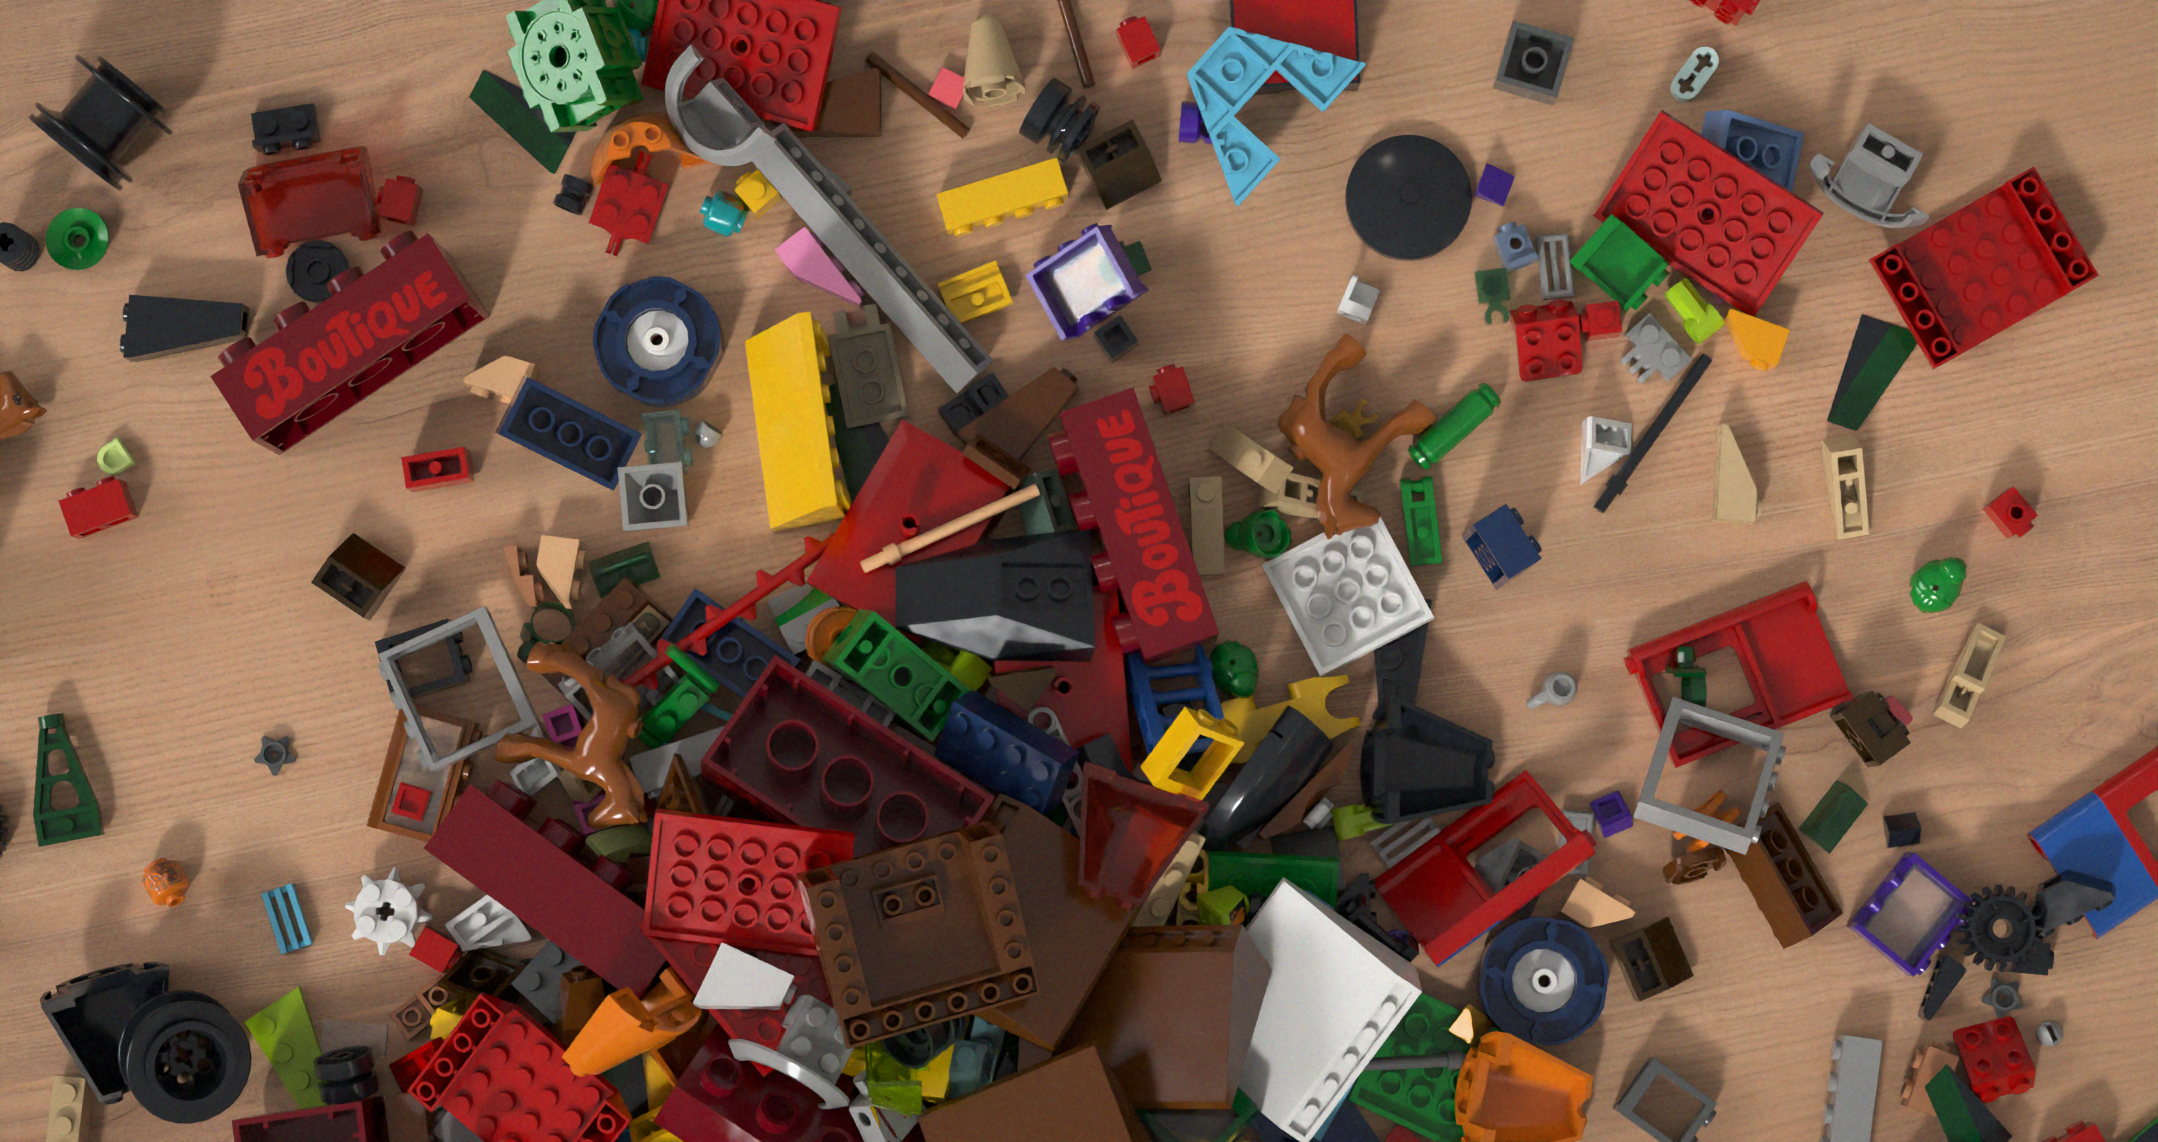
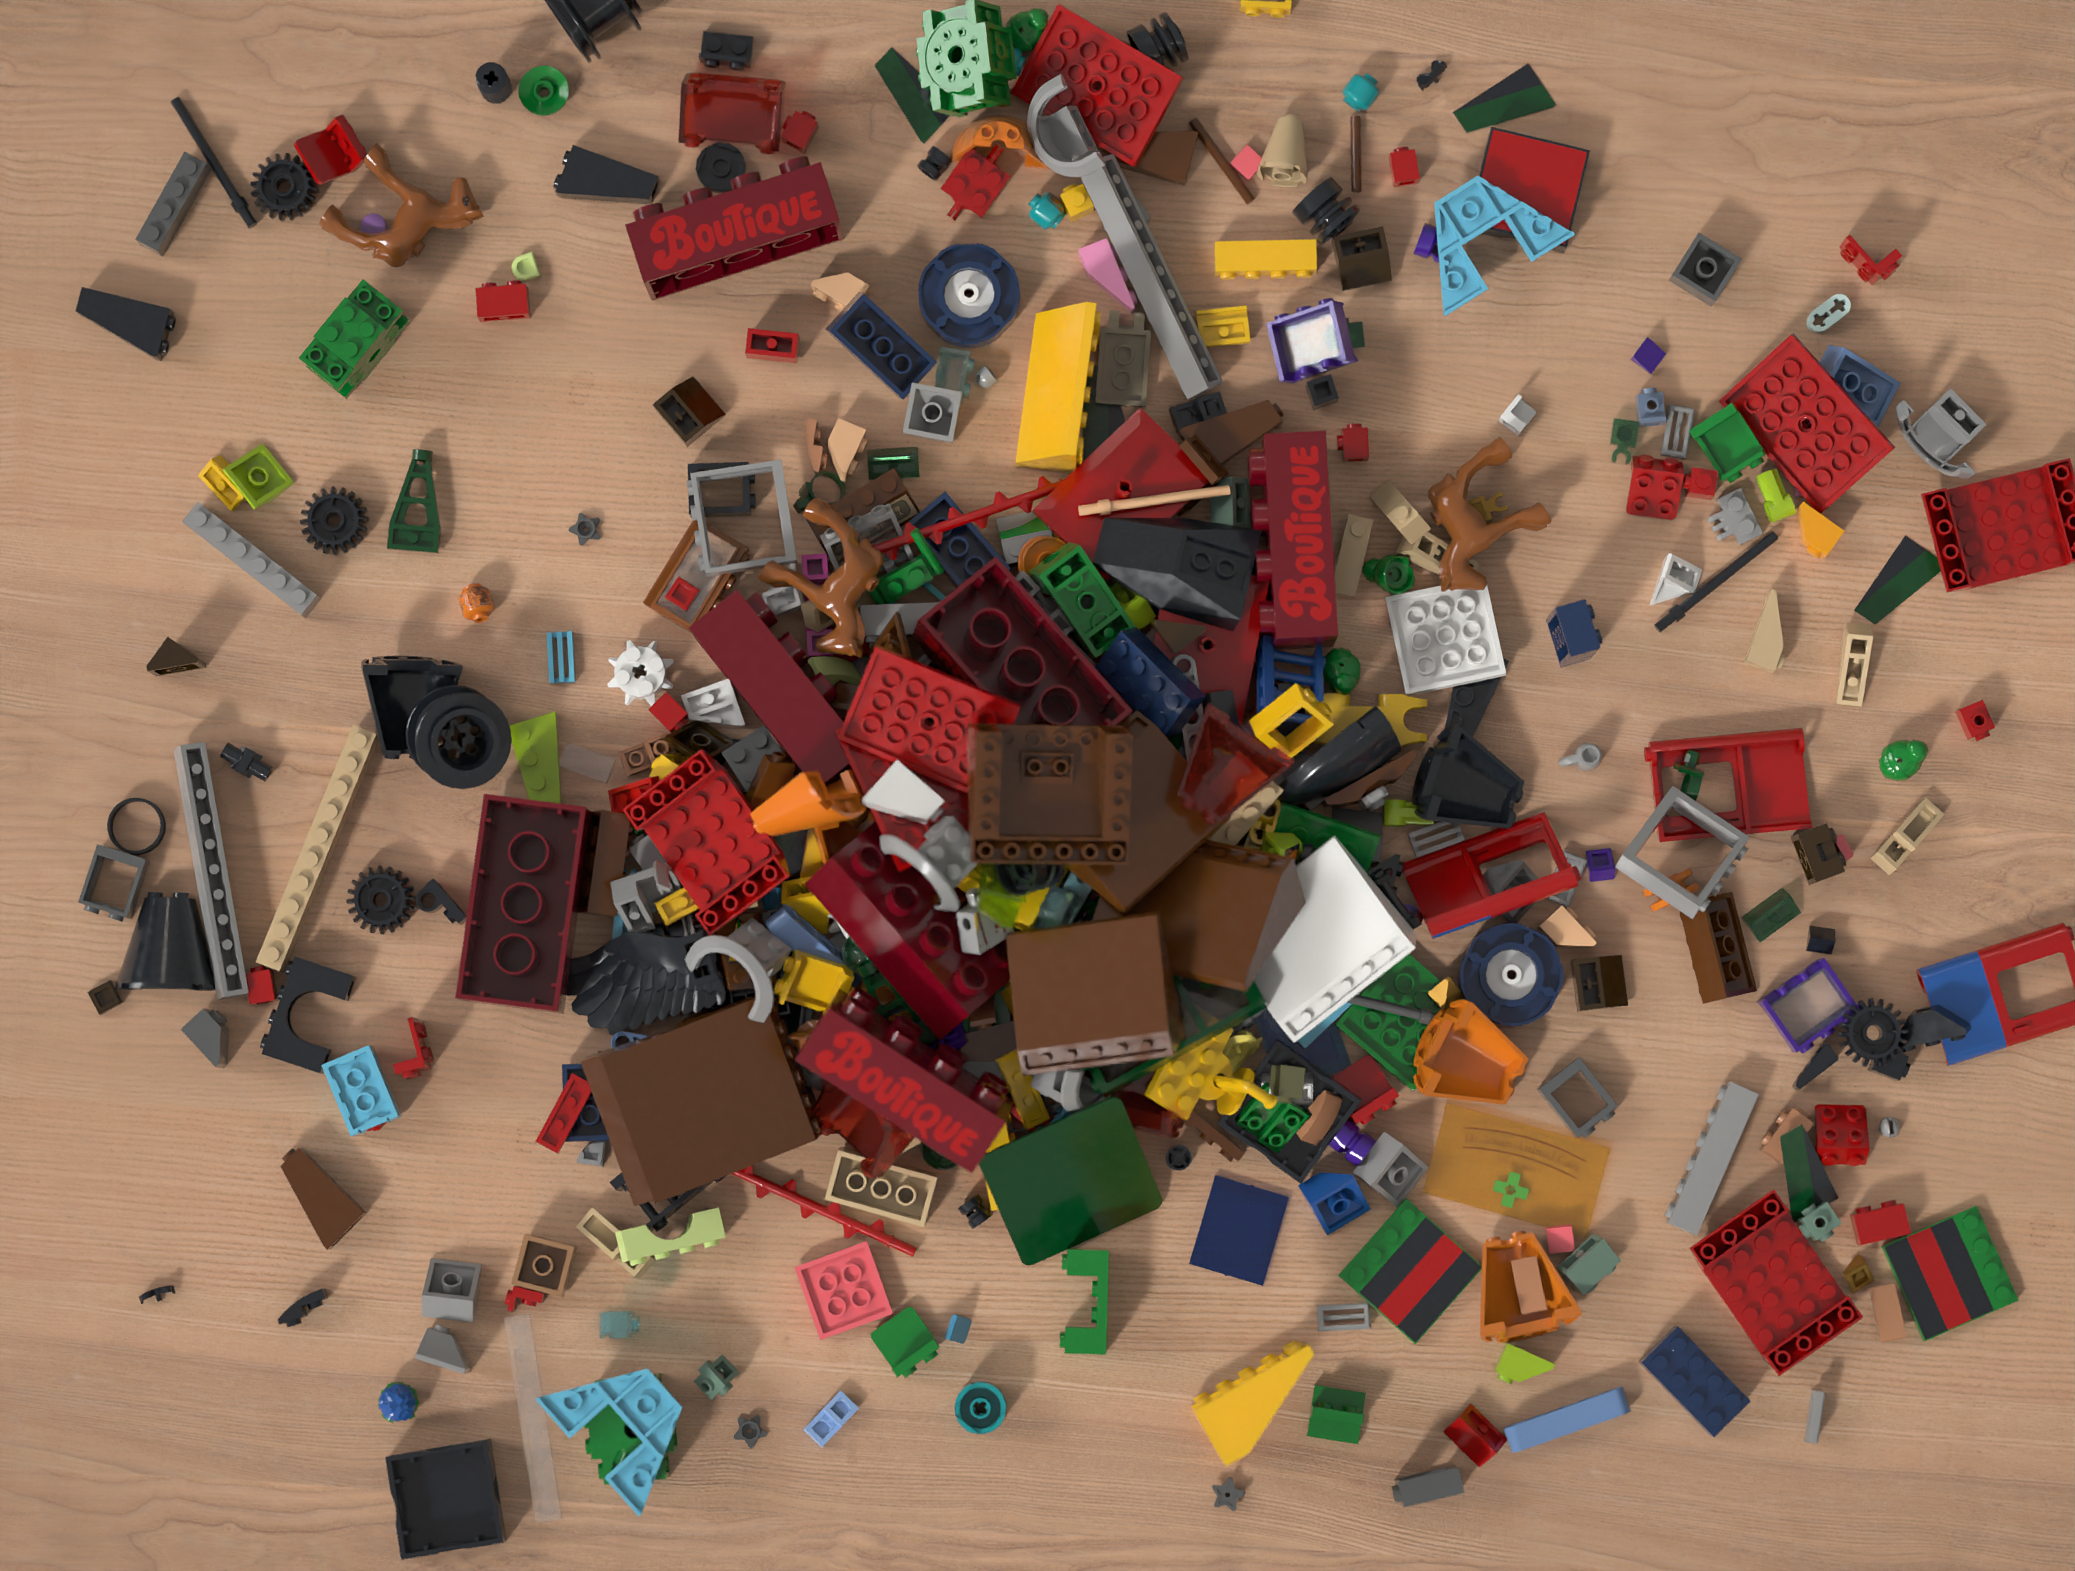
camera: 15 degrees right, 0 degrees up
(346, 1074) = (576, 786): black wheel -> none
(1408, 197) = (1579, 347): black dish -> none
(1421, 522) = (1517, 599): green plate -> none
(1454, 426) = (1564, 532): green axle -> none
(1694, 865) = (1652, 919): reddish brown tile -> none
(2010, 992) = (1868, 1086): dark grey plate -> none

